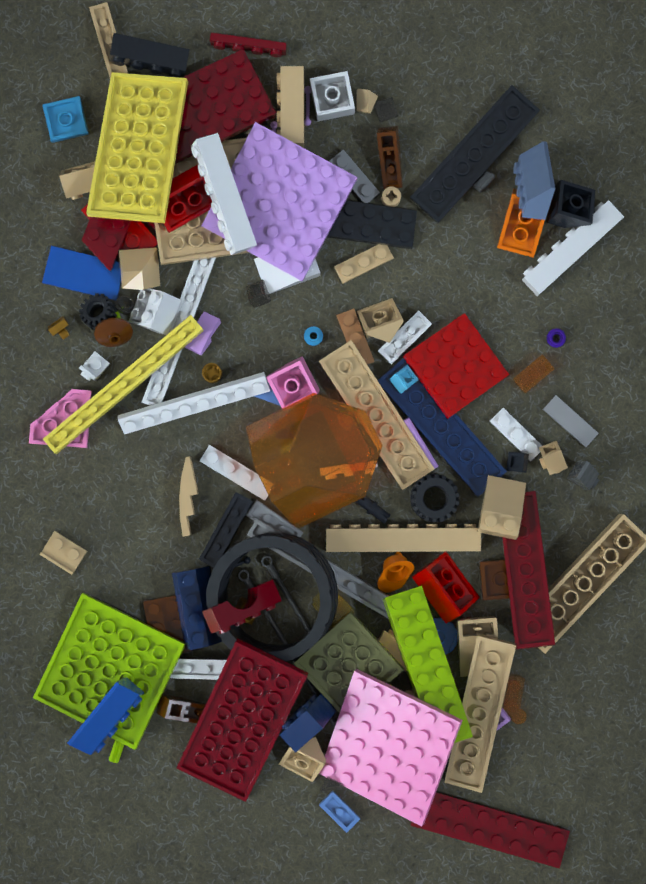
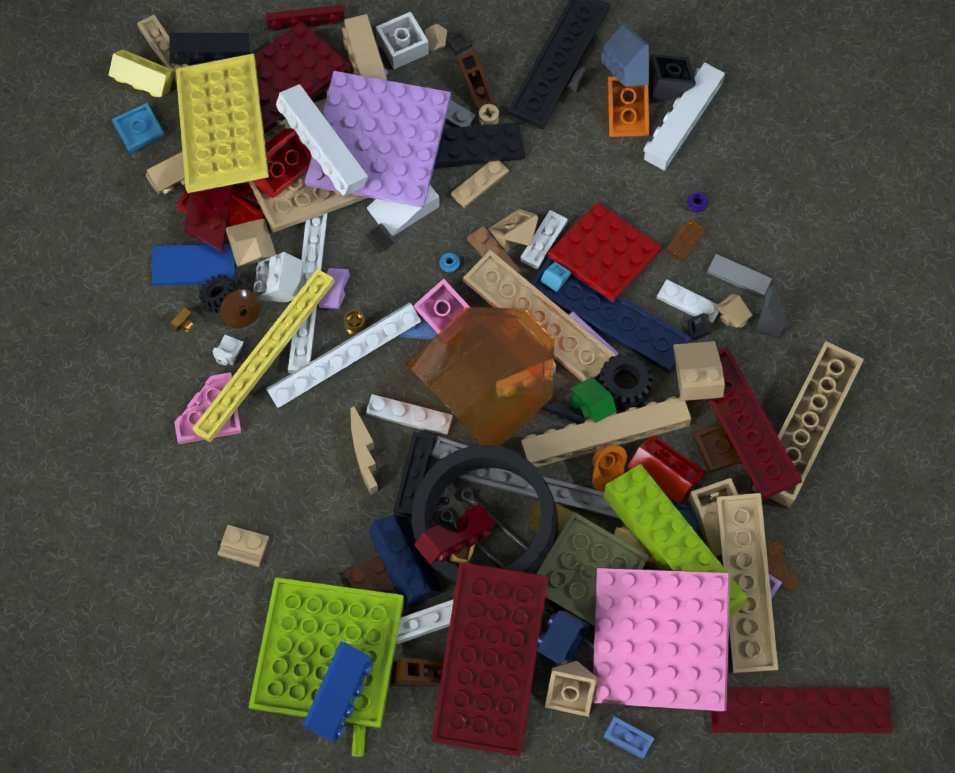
camera: 15 degrees left, 20 degrees down
(80, 64) = (141, 73): none -> light yellow brick
(400, 509) = (593, 400): none -> green brick

